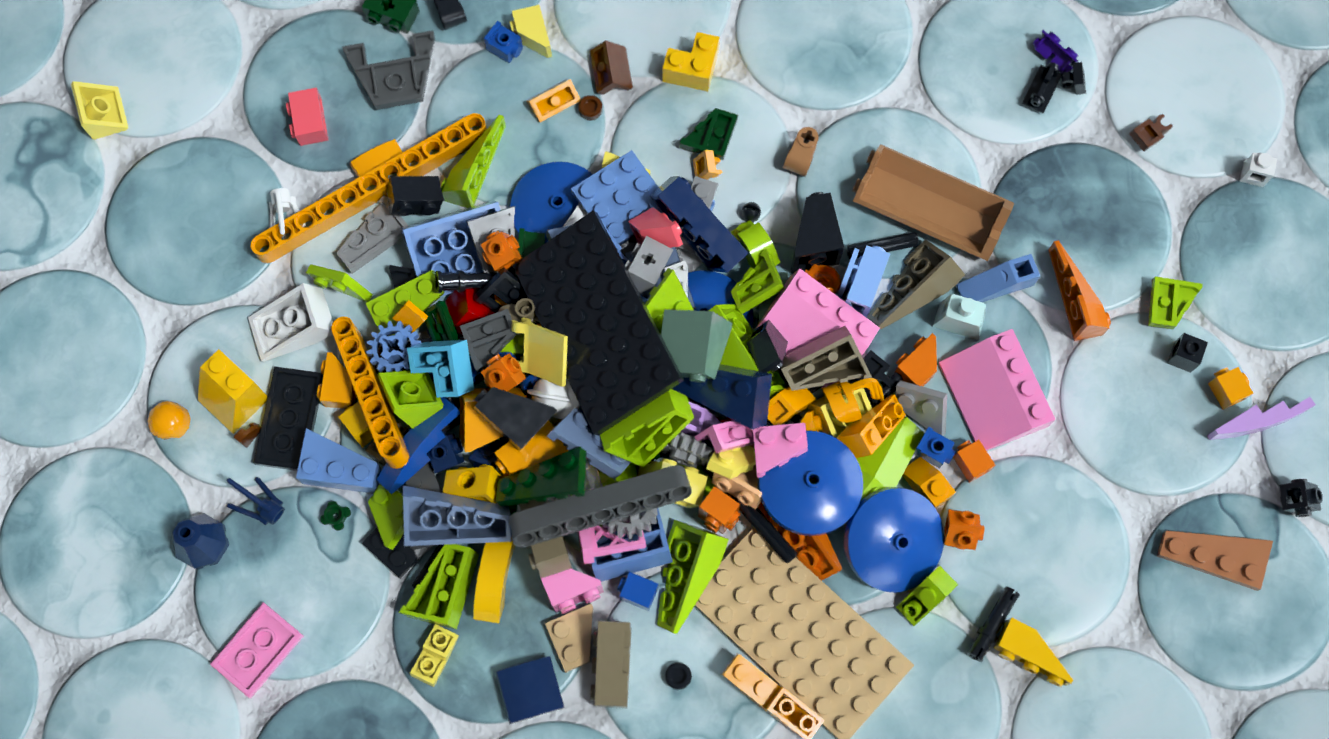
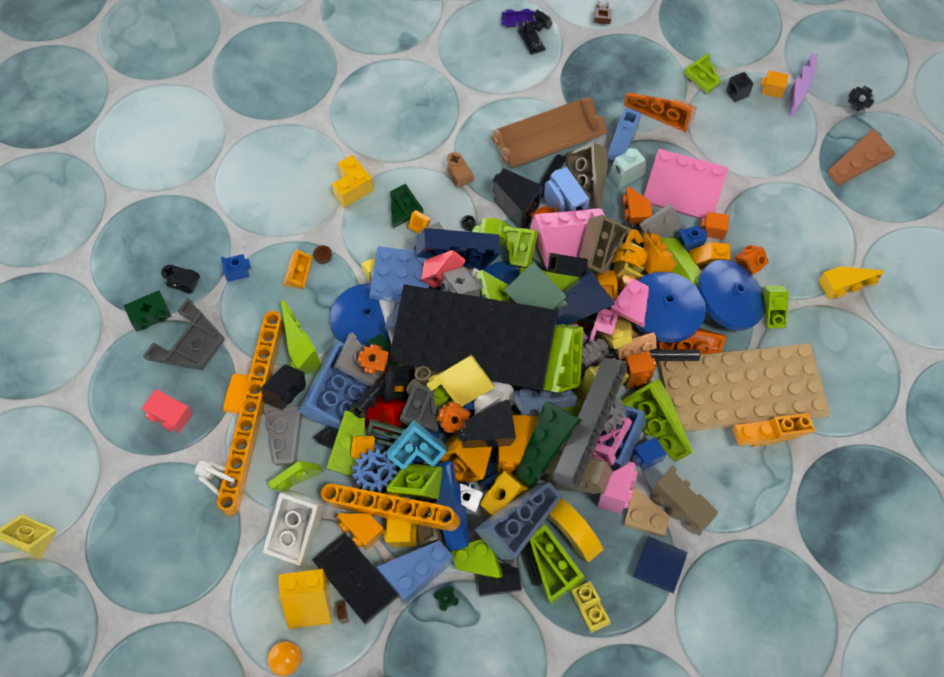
camera: 50 degrees left, 10 degrees down
(269, 510) = (406, 637): dark blue plant -> none
(530, 26) = (243, 243): light yellow slope -> none
(610, 67) = (309, 225): reddish brown panel -> none
(678, 676) = (717, 473): black tile -> none
(994, 622) = (820, 293): black pin -> none

